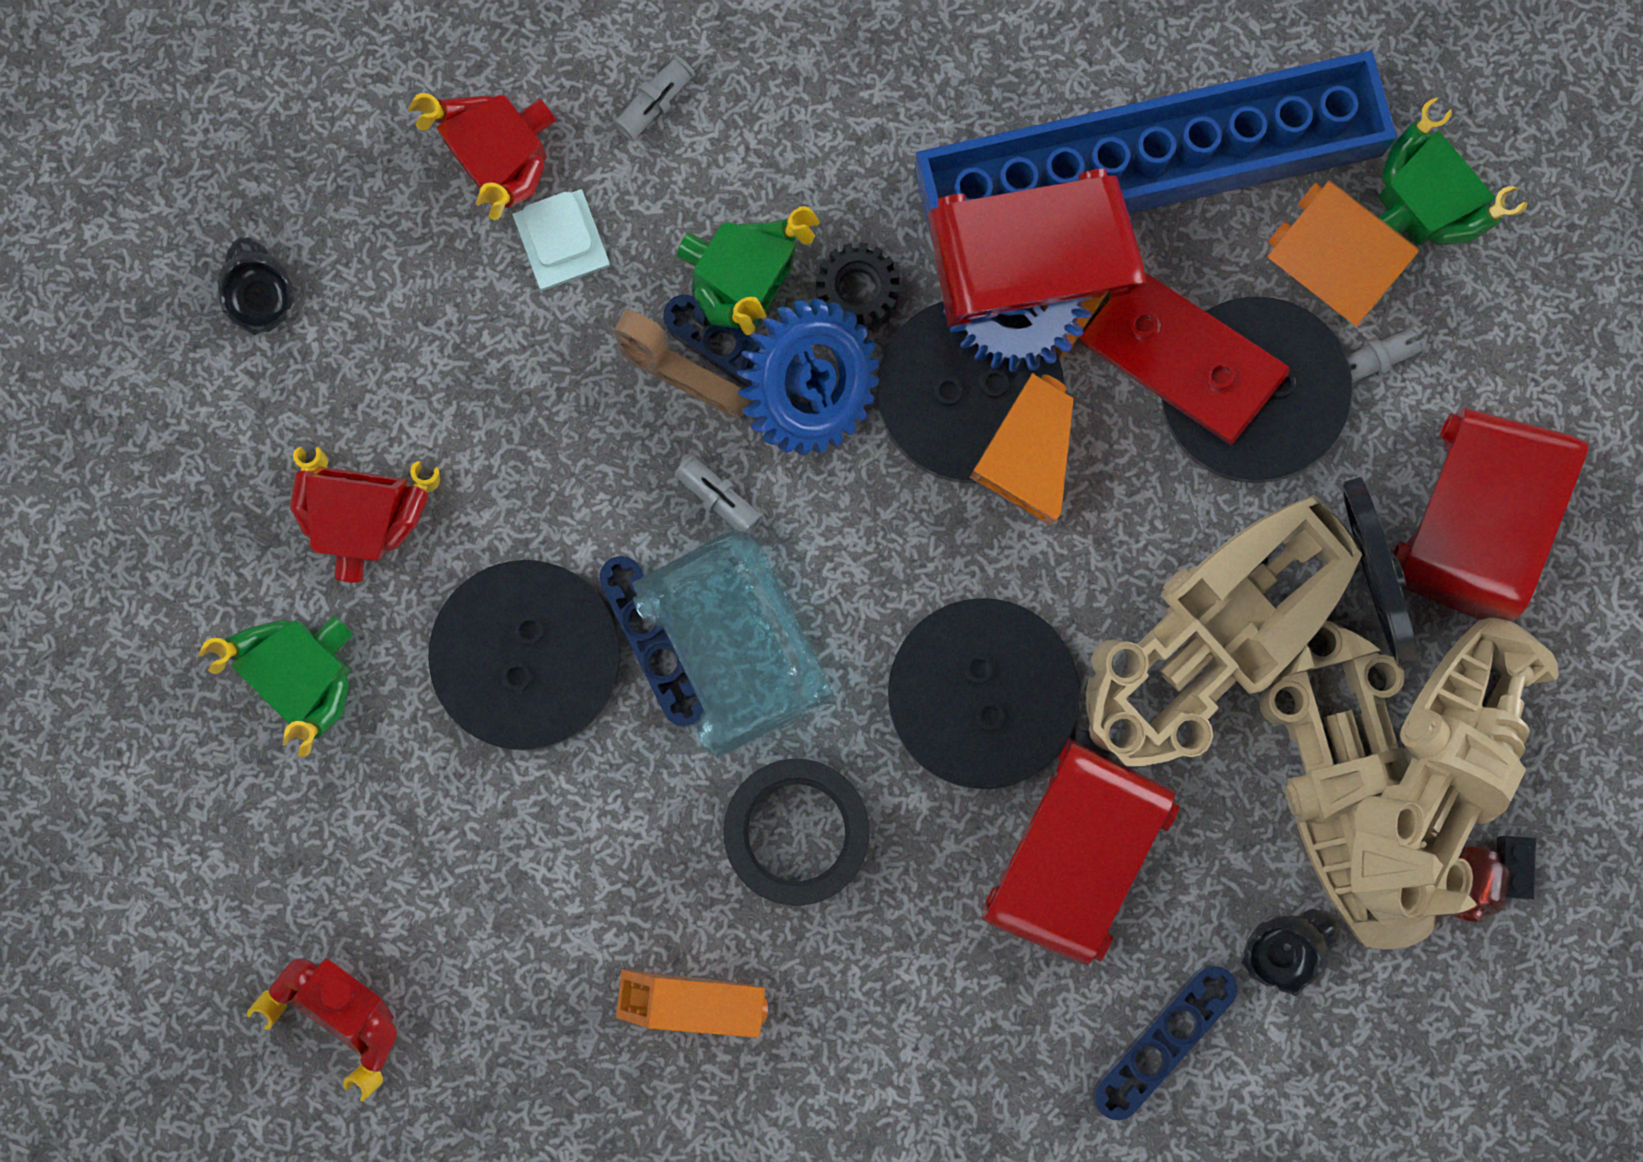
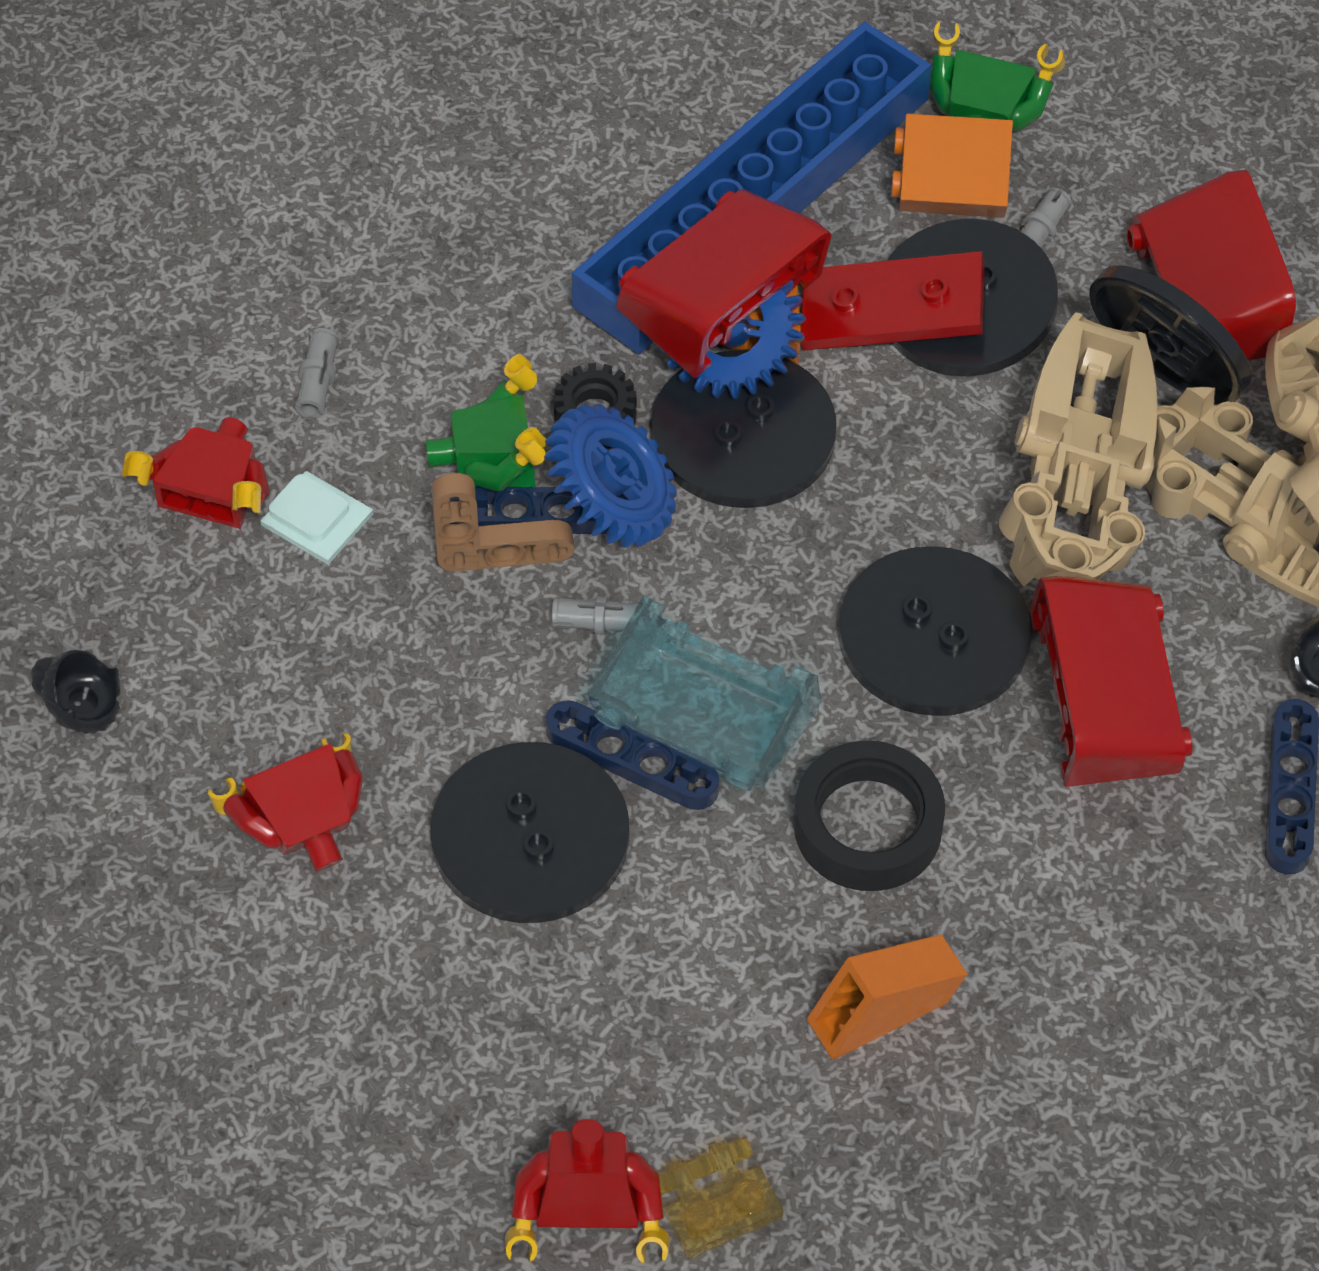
camera: 35 degrees left, 25 degrees down
(291, 672) = (337, 957): green torso -> none
(435, 1088) = (722, 1211): none -> clear yellow plate
(1031, 450) = (832, 429): orange slope -> none

